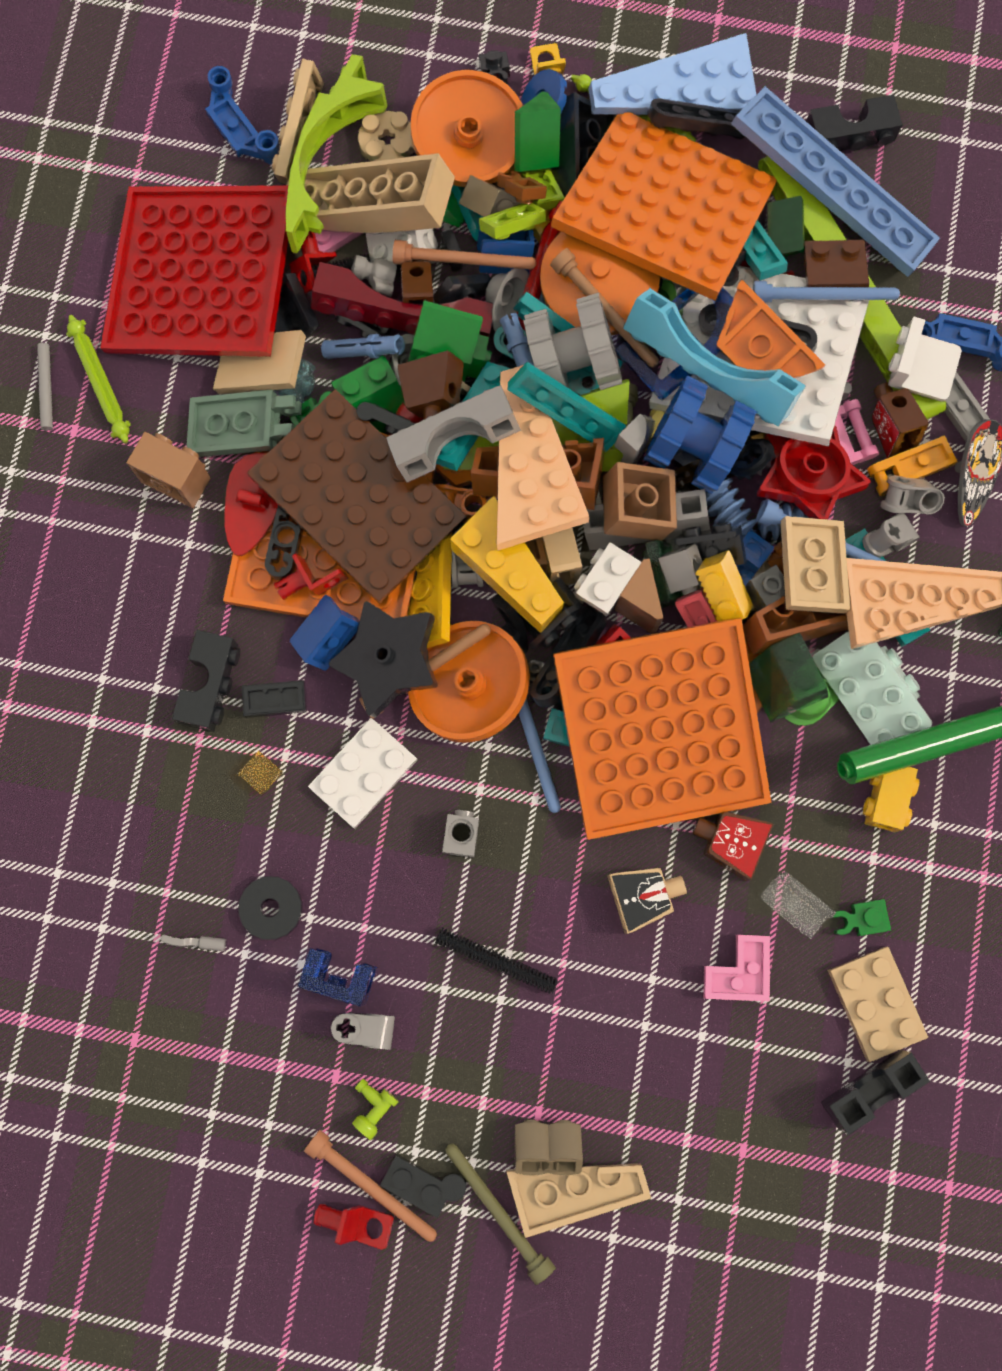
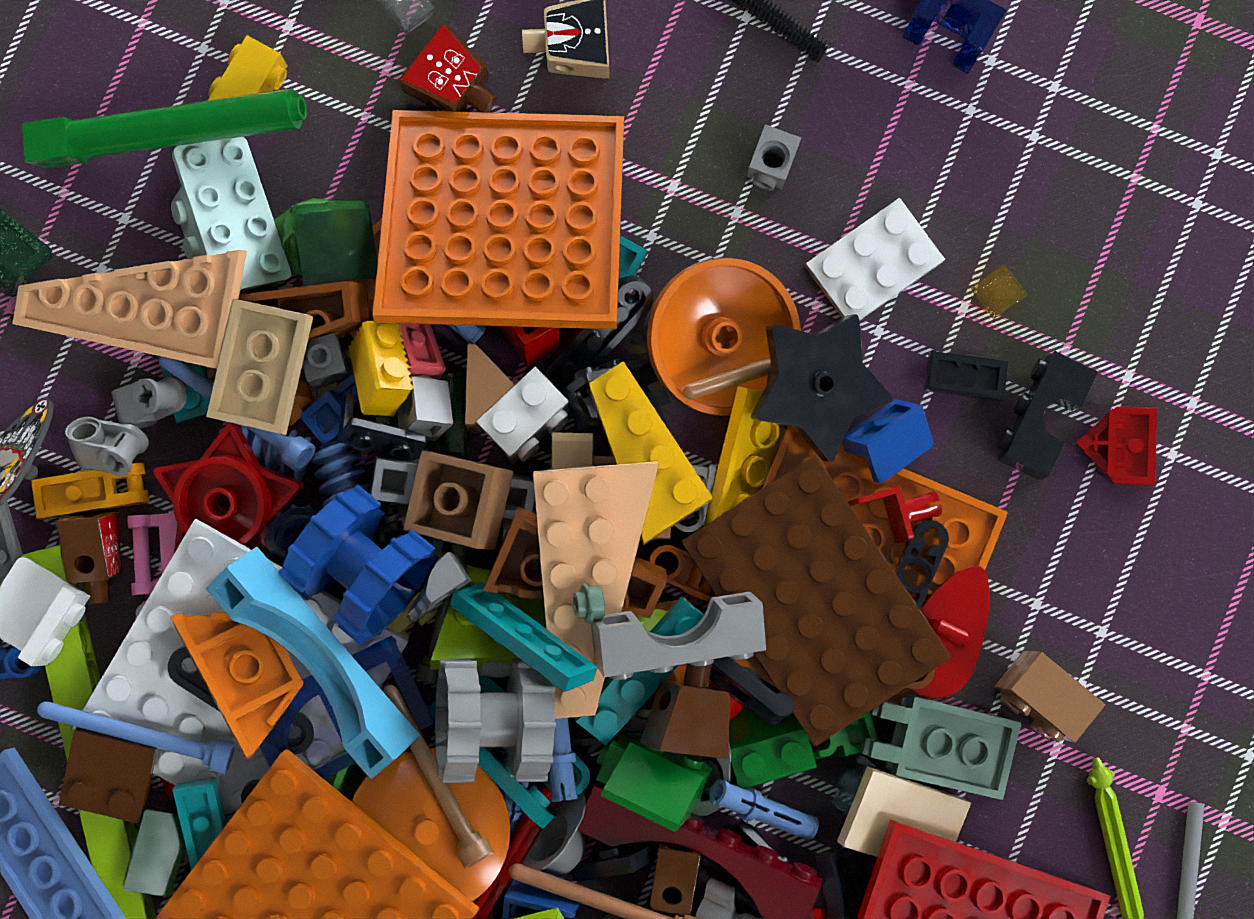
camera: 170 degrees left, 5 degrees up
(141, 675) = (1124, 445): none -> red slope
(206, 943) = (1103, 108): light grey piece -> none
(289, 908) = (1026, 110): black tile -> none
(524, 435) = (589, 603): none -> sand green plate
(539, 758) = (657, 227): medium blue piece -> none

